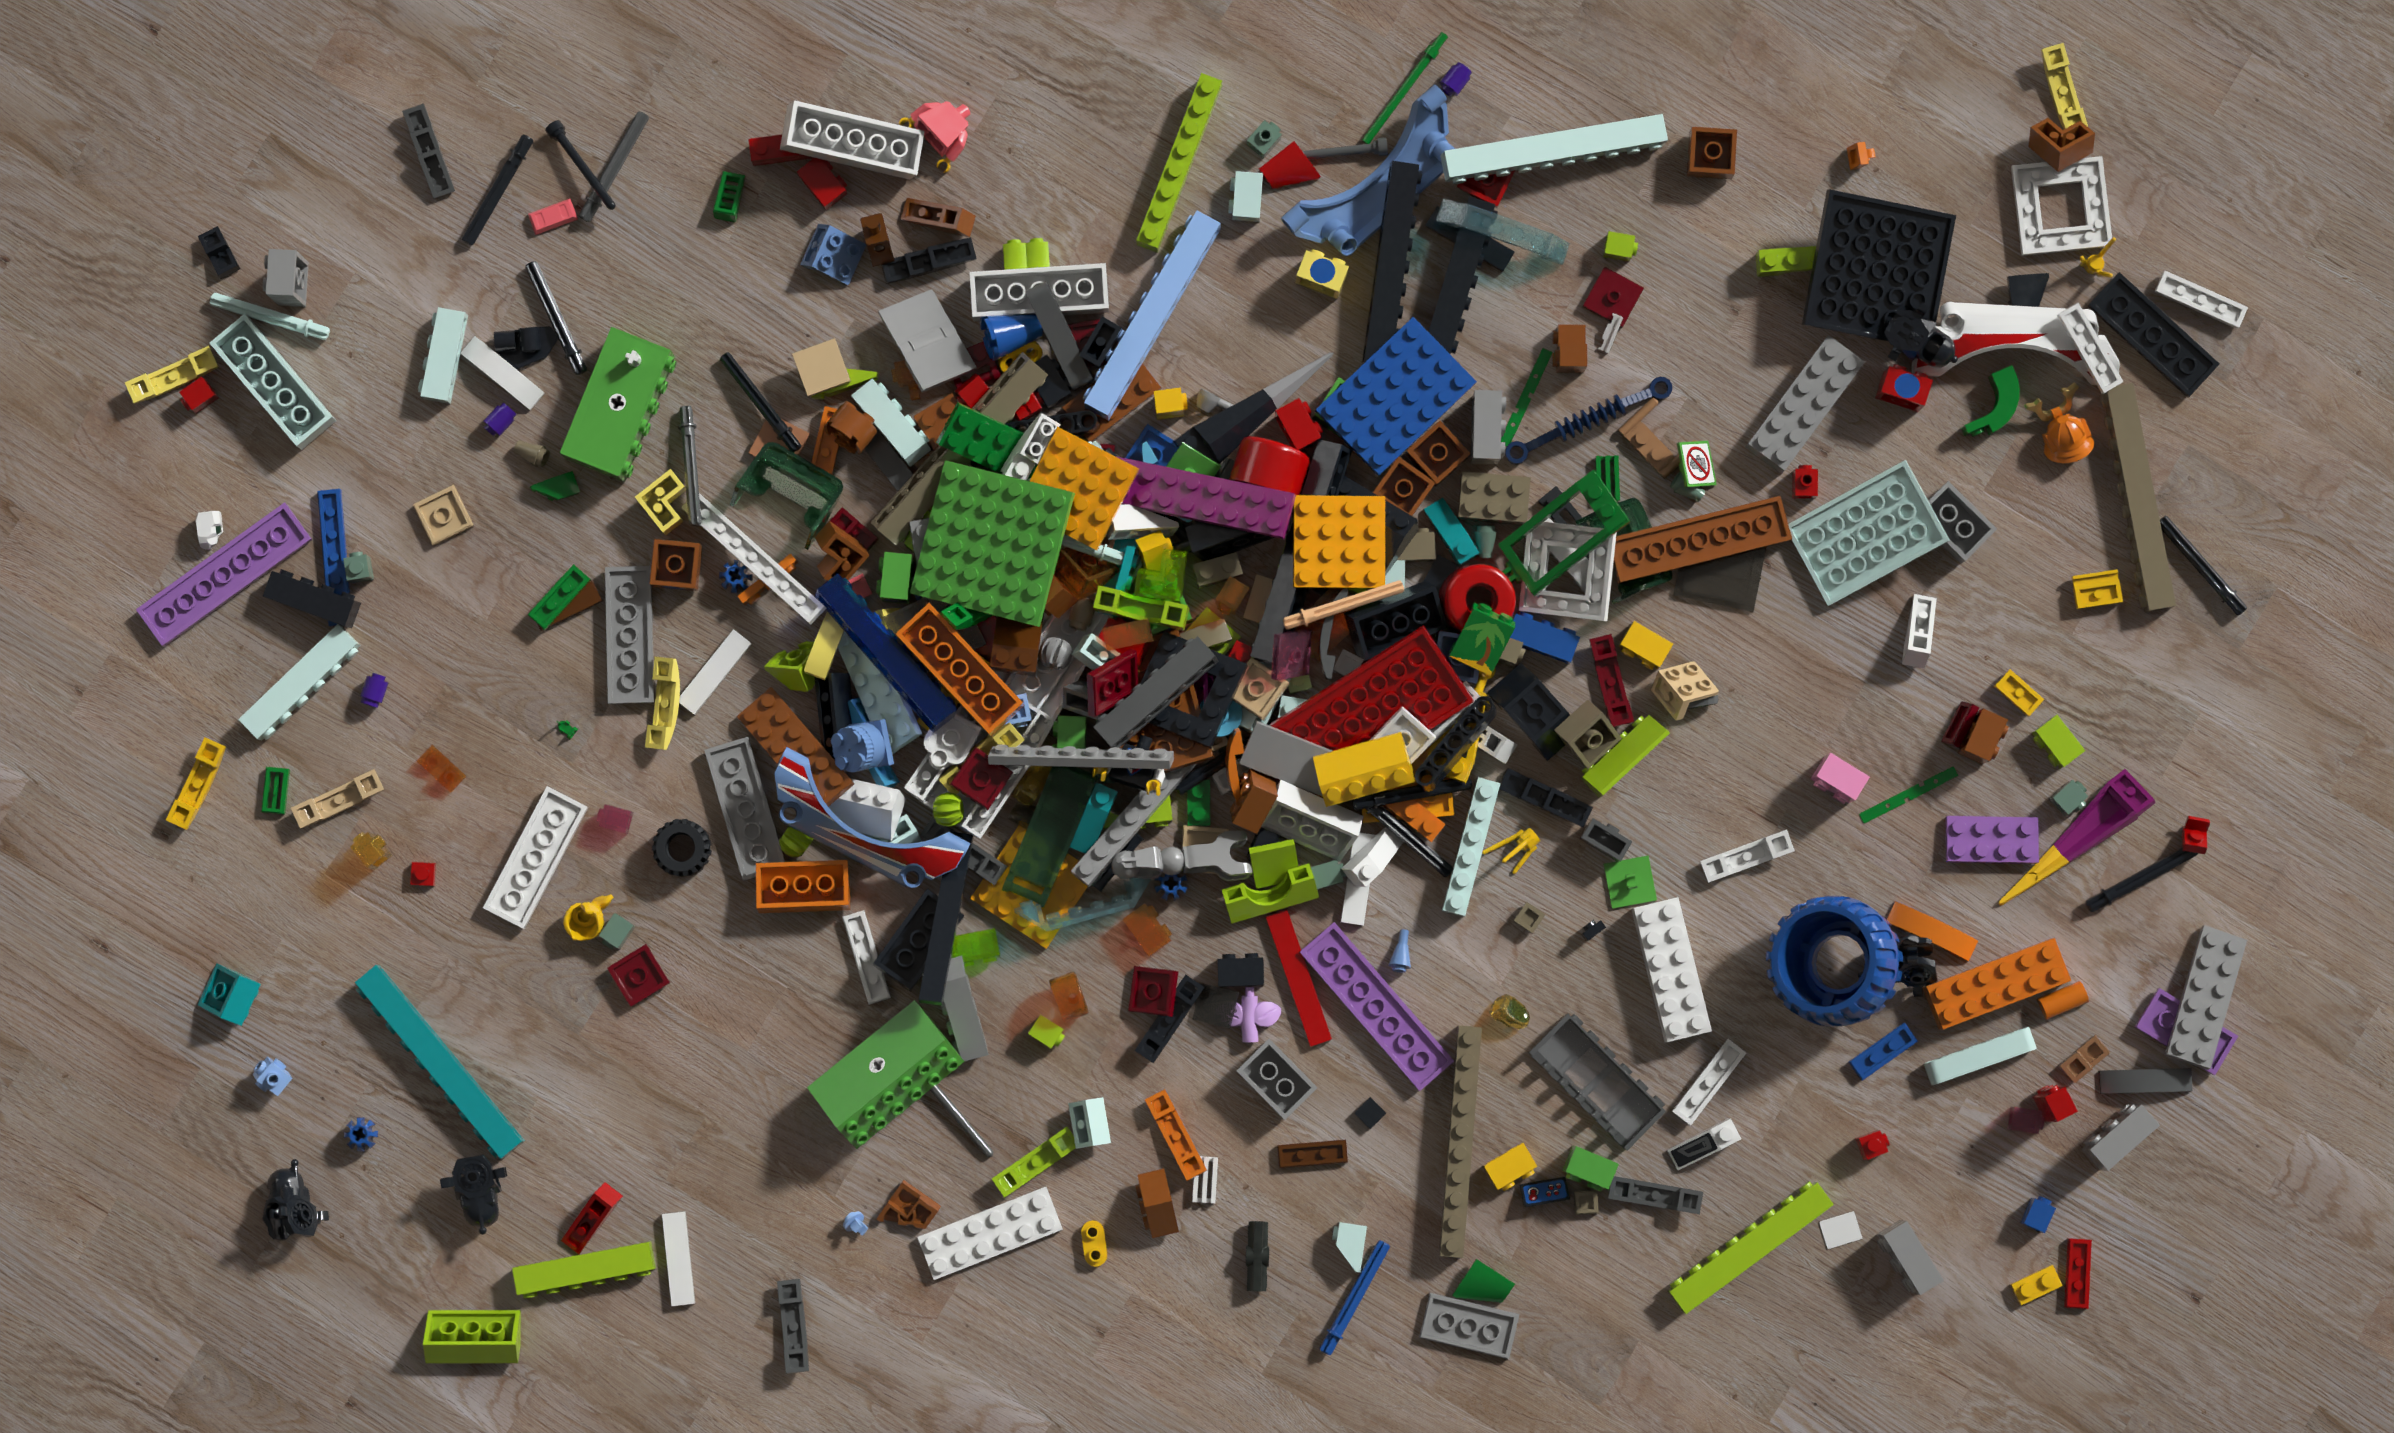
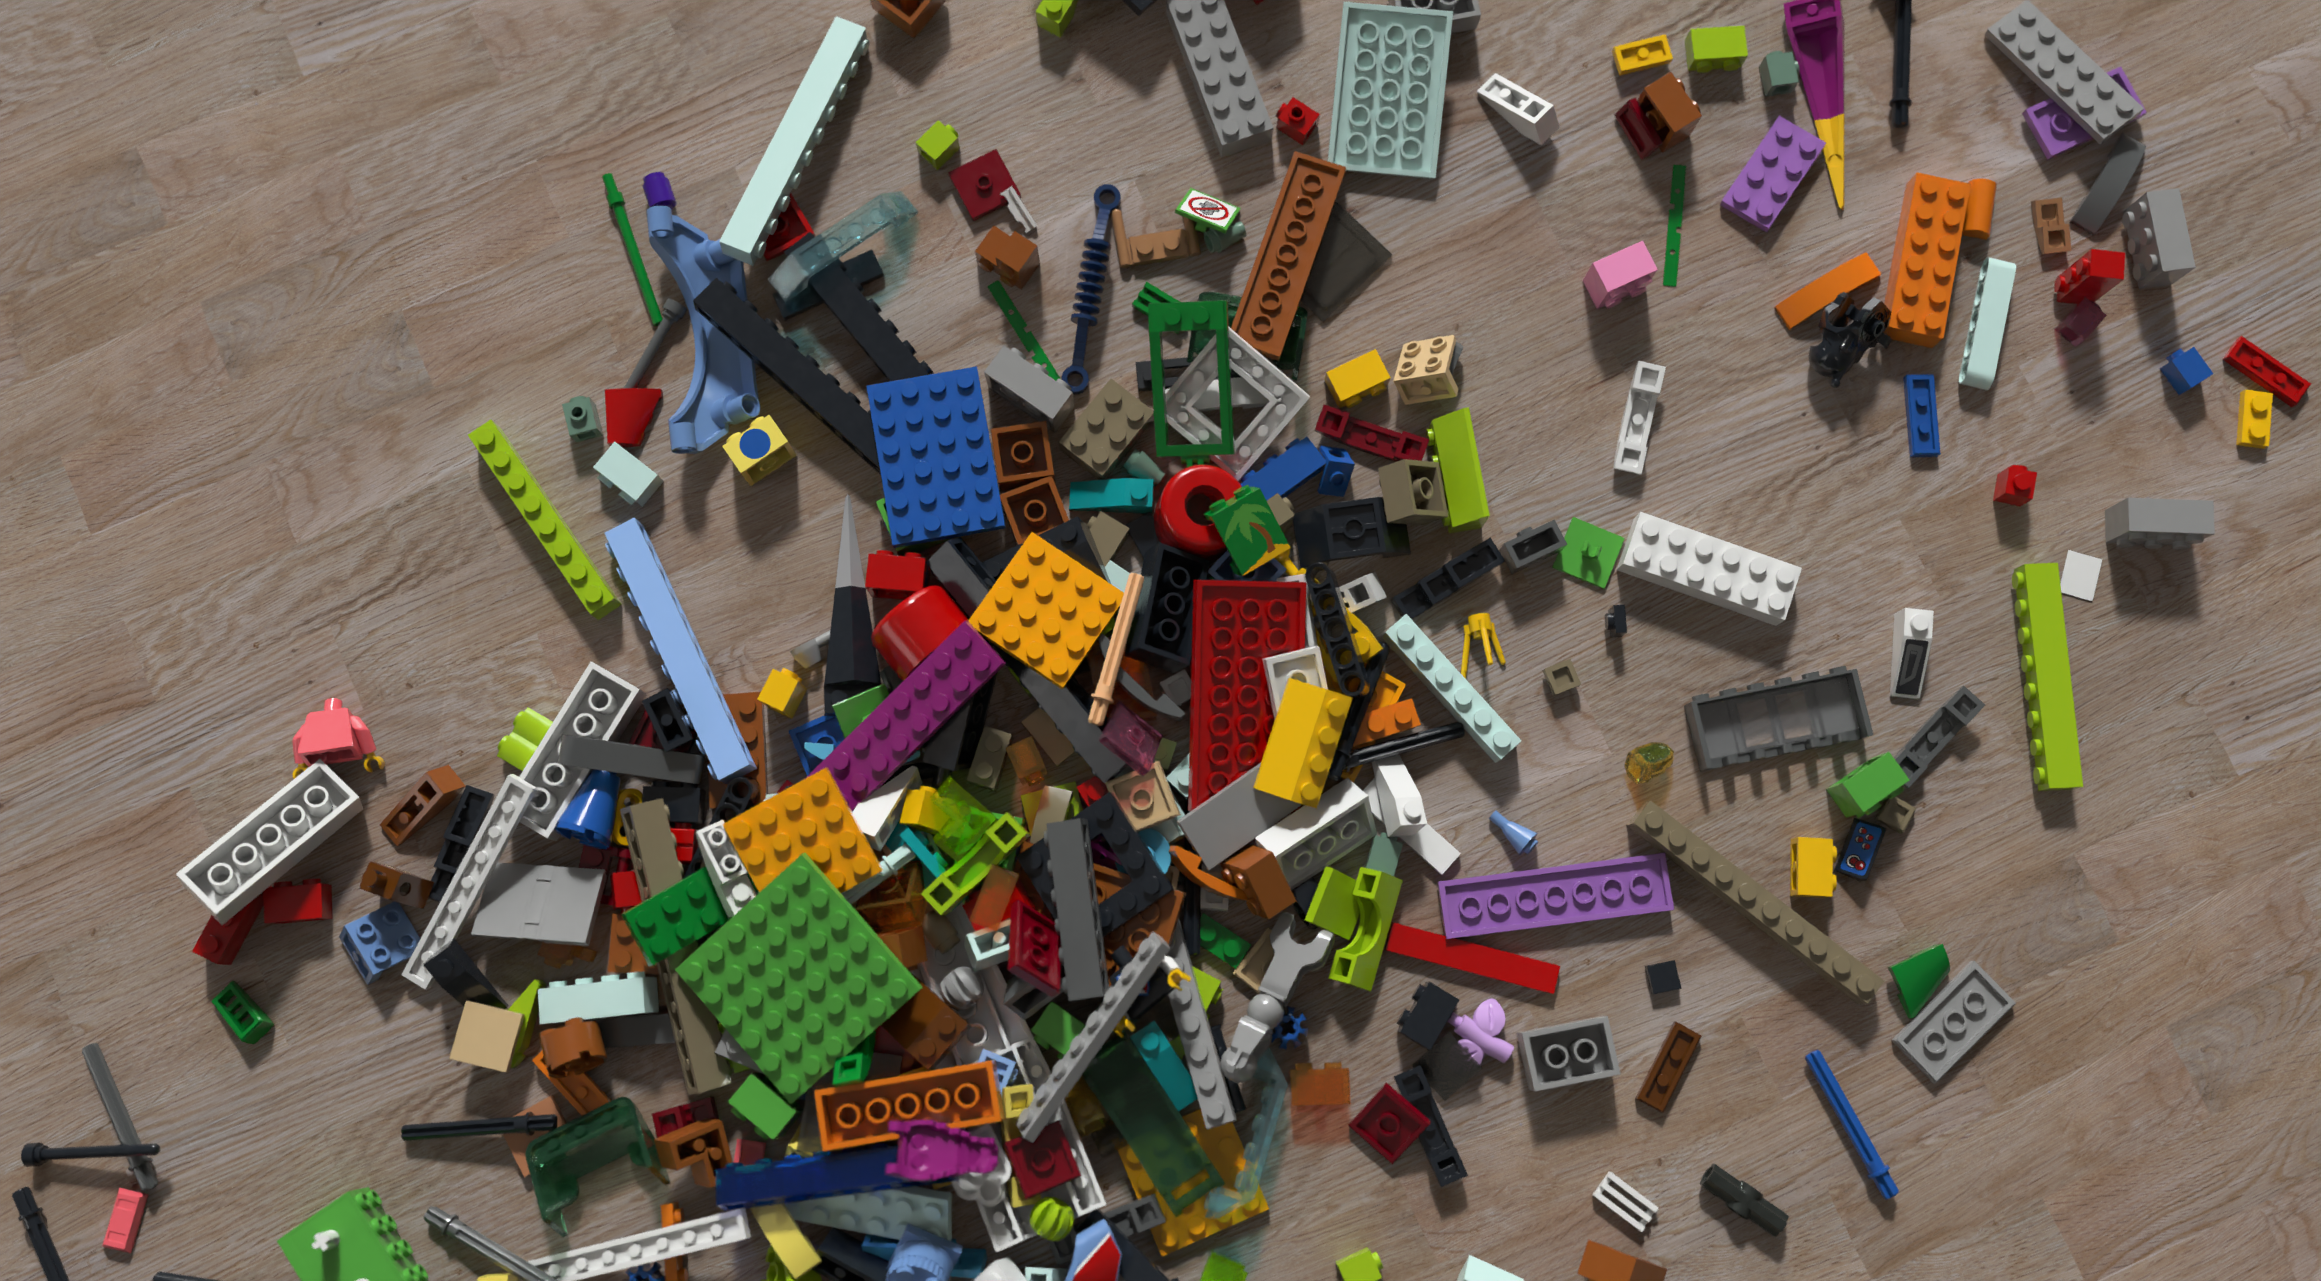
camera: 55 degrees left, 5 degrees down
(847, 323) = (461, 976): none -> black slope
(911, 285) = (471, 876): none -> white plate
(944, 705) = (936, 1151): none -> magenta animal
(1069, 1007) = (1338, 1220): clear orange piece -> none
(1176, 1135) = (1560, 1202): orange slope -> none
(1350, 1241) = (1790, 1089): light aqua slope -> none
(1570, 673) = (1336, 472): none -> blue bracket
(1709, 1082) = (1848, 607): white plate -> none
(1796, 954) = (1836, 443): blue tyre -> none

